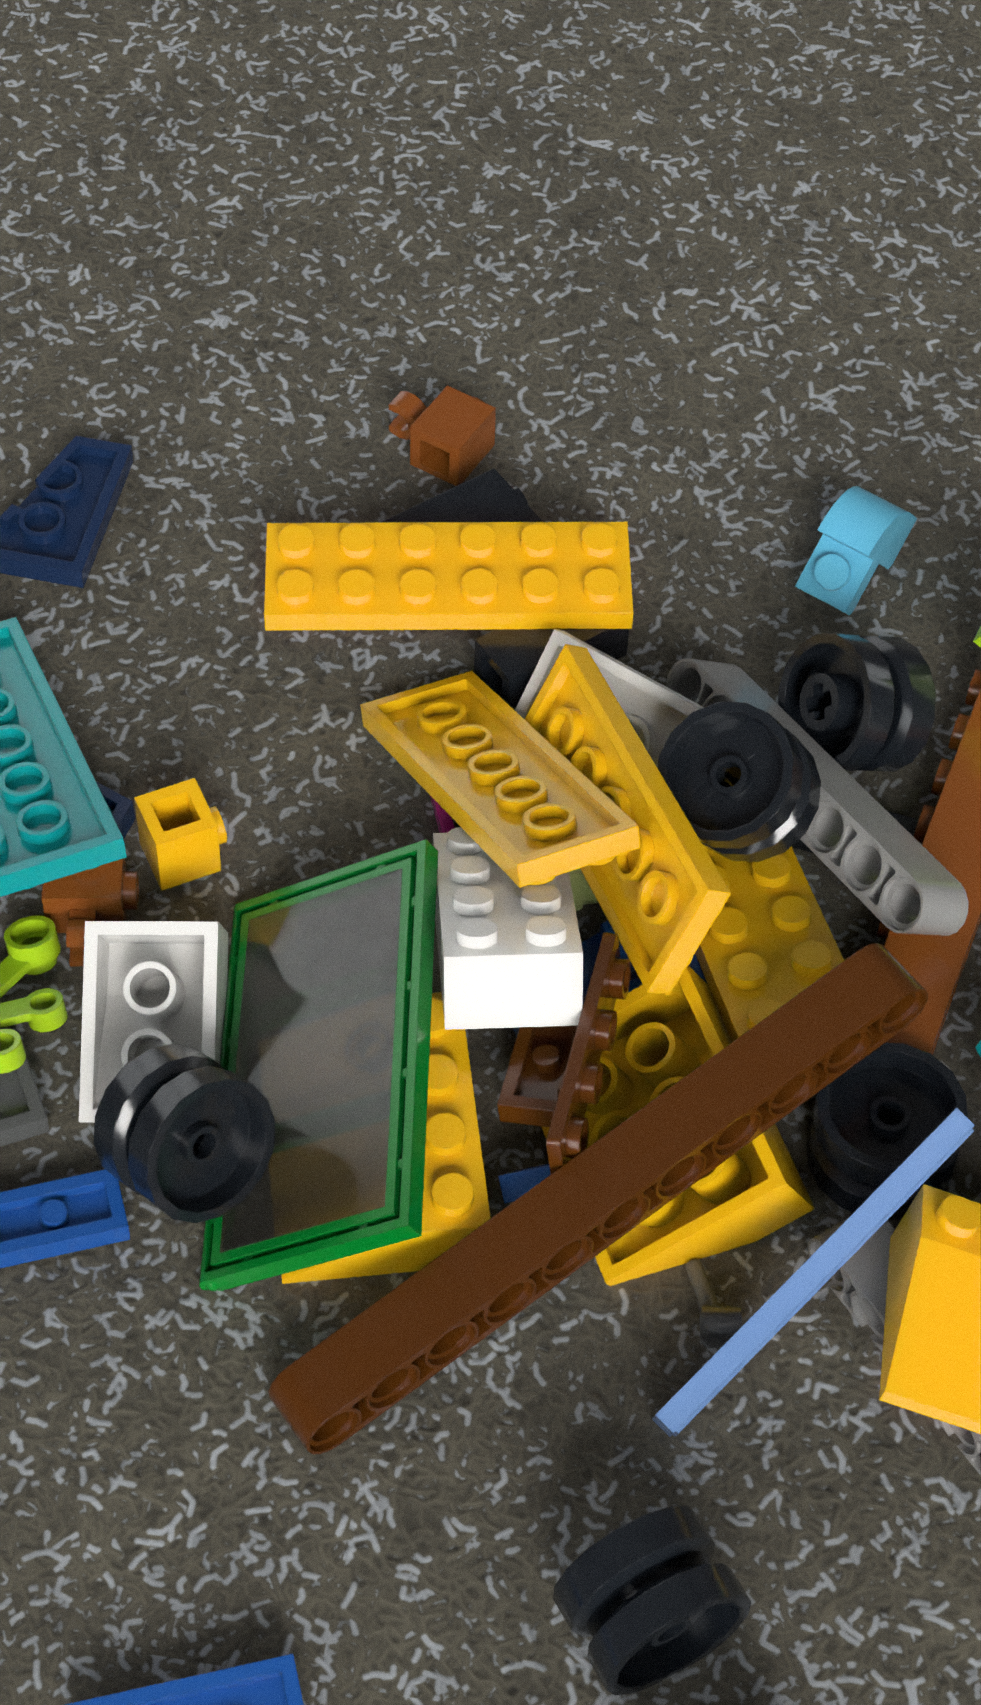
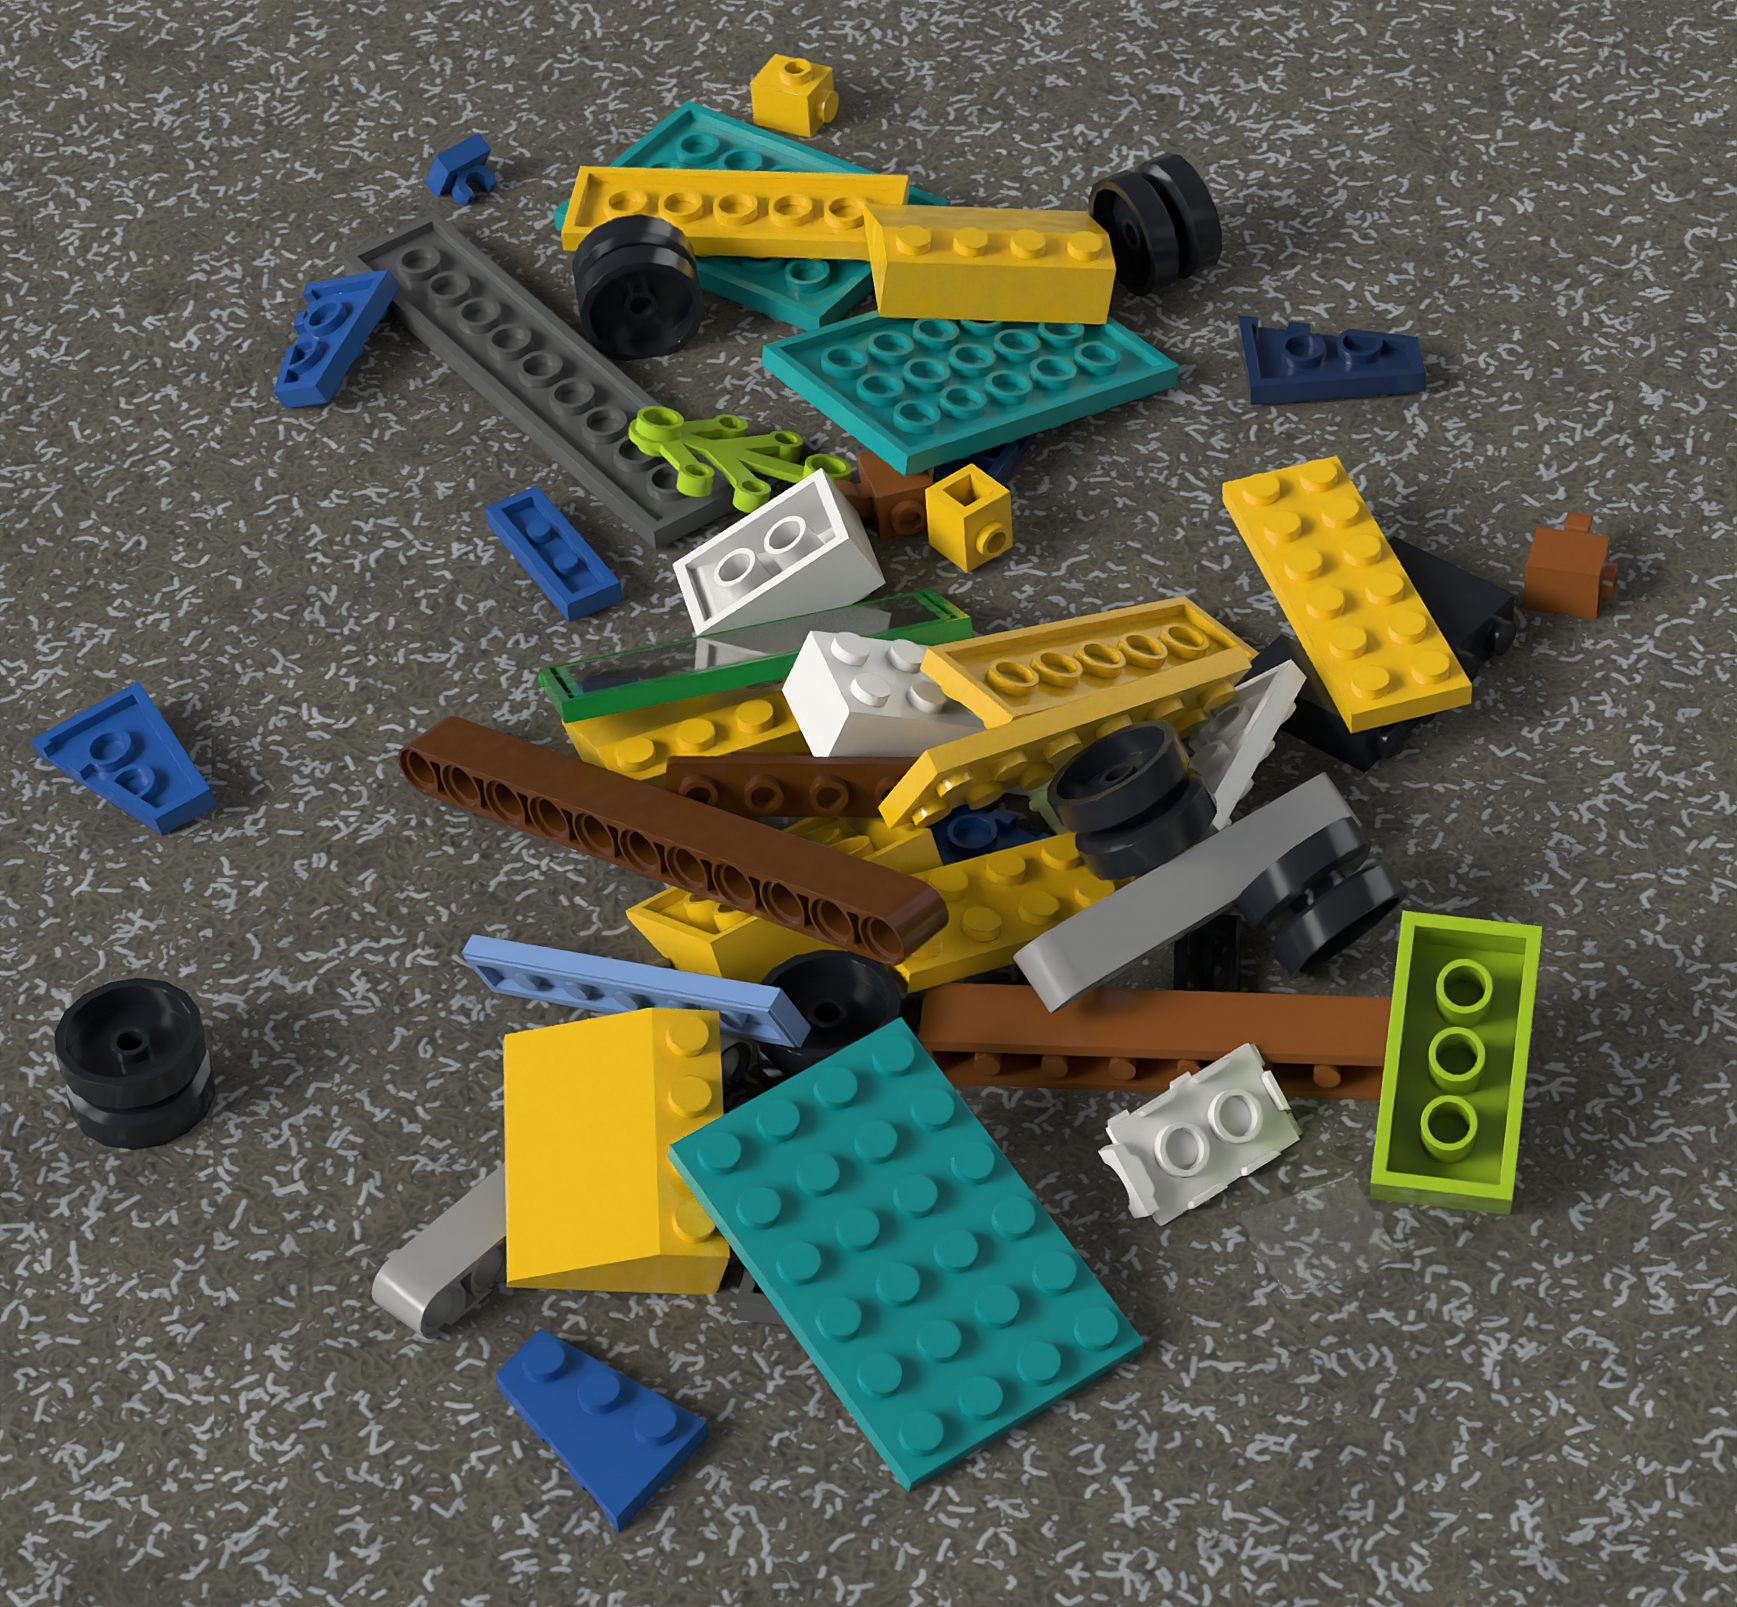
camera: 80 degrees right, 10 degrees down
(184, 1132) = (636, 584): black wheel -> none
(651, 1599) = (297, 965): black wheel -> none
(854, 540) = (1588, 875): medium azure brick -> none

